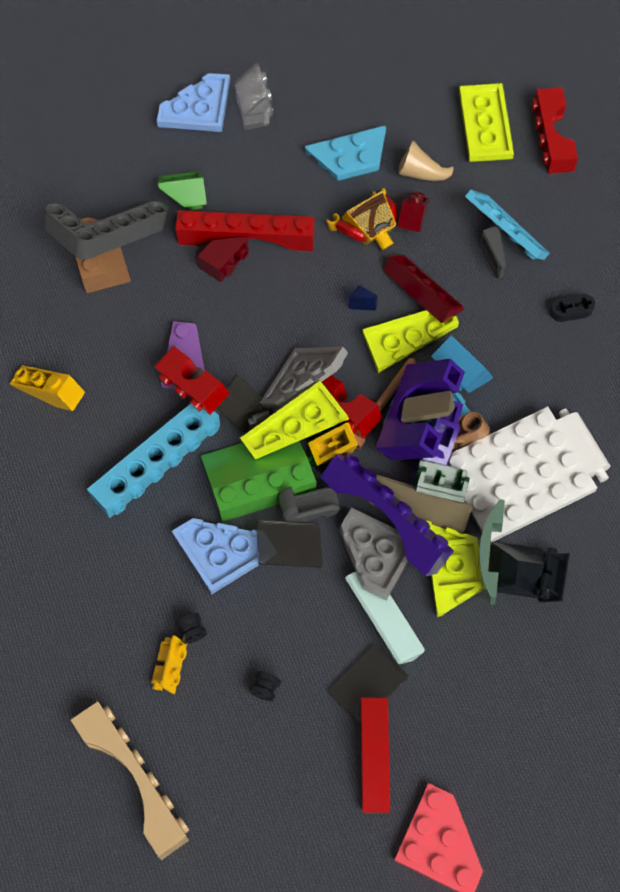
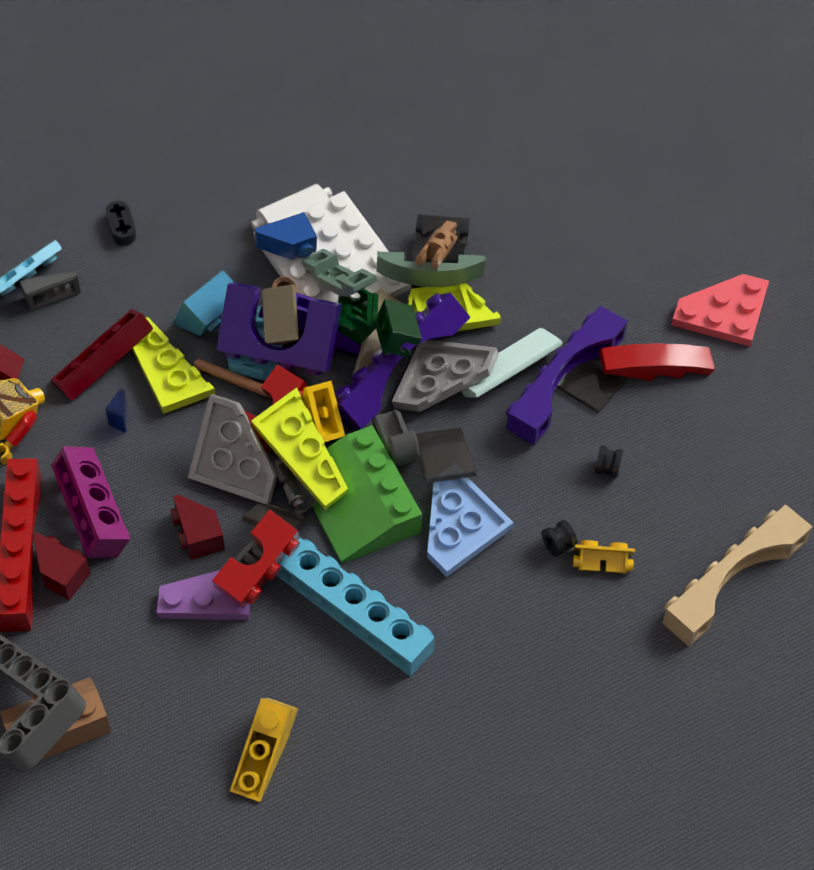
camera: 100 degrees left, 10 degrees down
(244, 350) = (199, 527): none -> dark red slope
(307, 261) = (90, 502): none -> magenta brick
(323, 626) = (533, 412): none -> dark purple arch
(404, 503) = (395, 326): none -> dark green hinge
(479, 466) = (334, 277): none -> sand green slope
(508, 554) = (438, 245): none -> medium nougat hinge
(530, 430) = (287, 237): none -> blue slope

